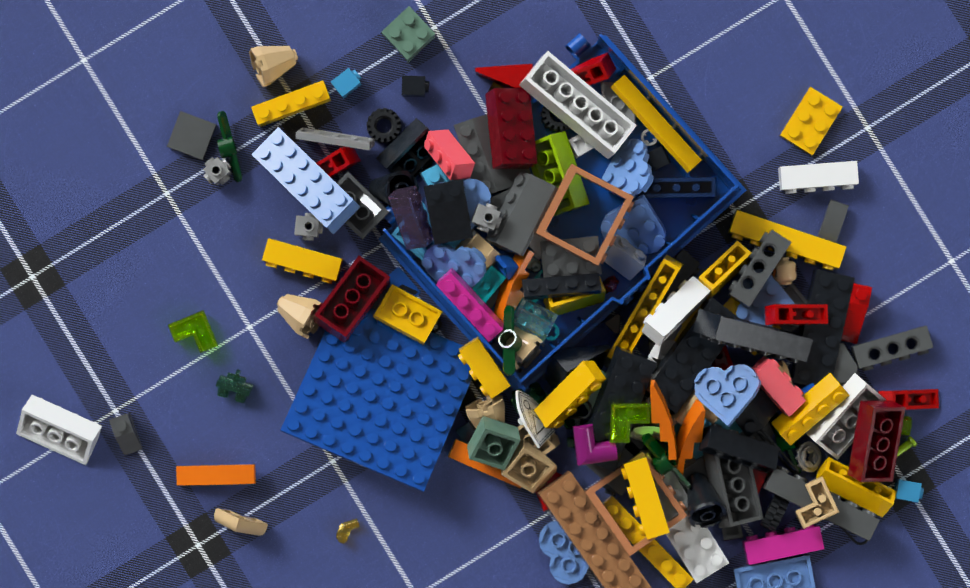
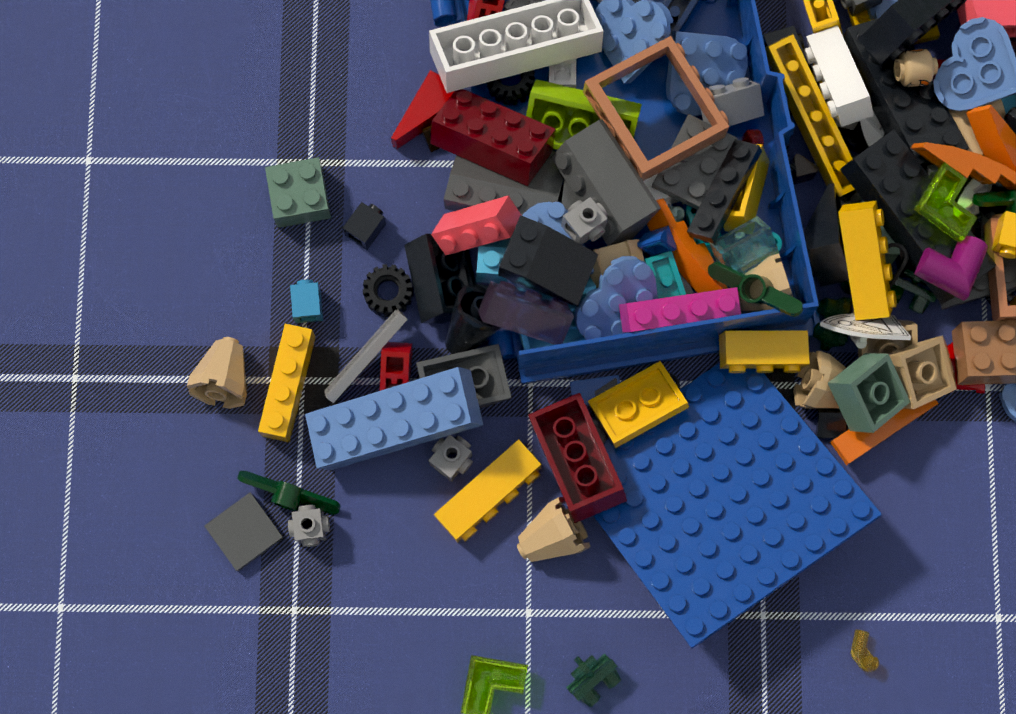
camera: 55 degrees left, 10 degrees down
(705, 353) = (915, 68): none -> tan head

